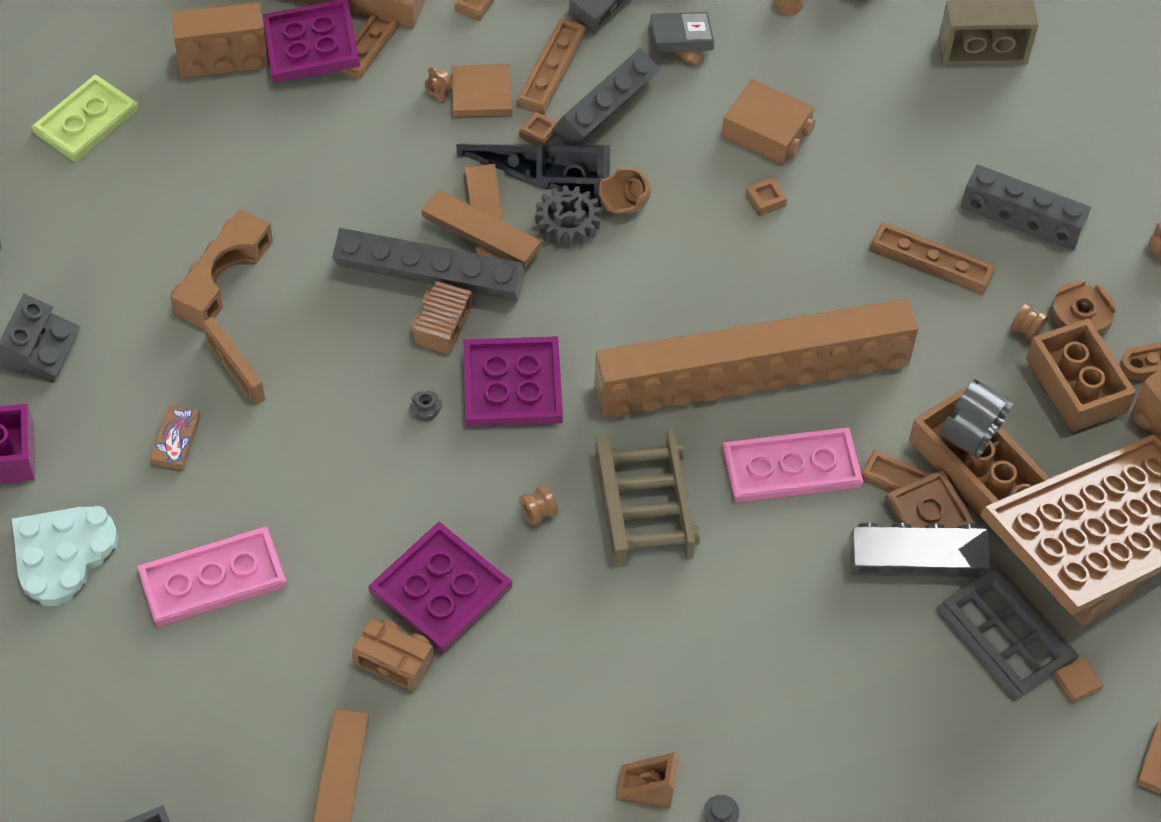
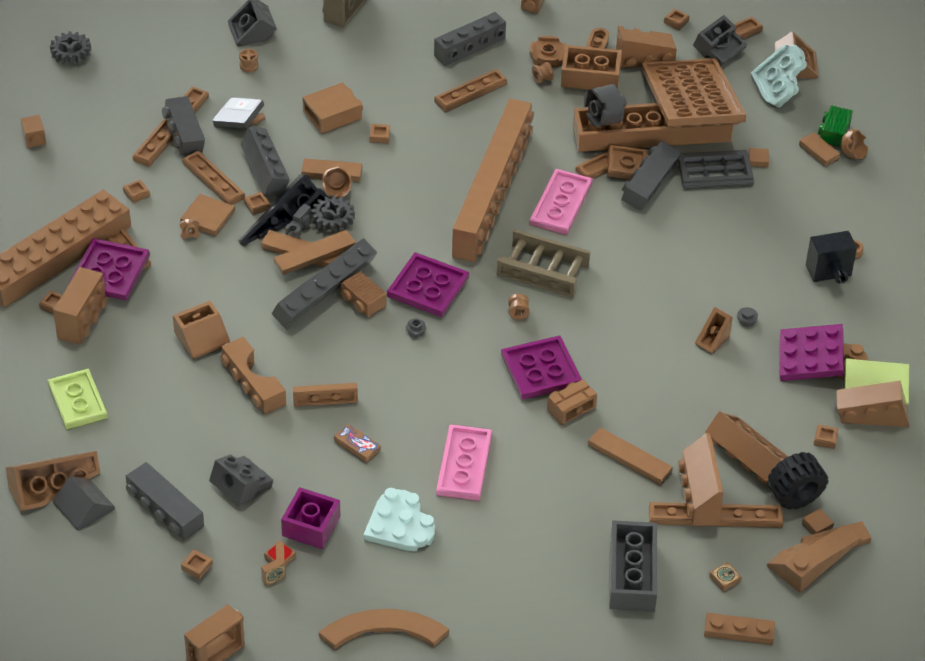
camera: 60 degrees left, 10 degrees down
(261, 177) = (200, 329): none -> medium nougat slope
(530, 186) = (301, 219): none -> dark grey plate
(665, 189) = (316, 168): none -> medium nougat tile

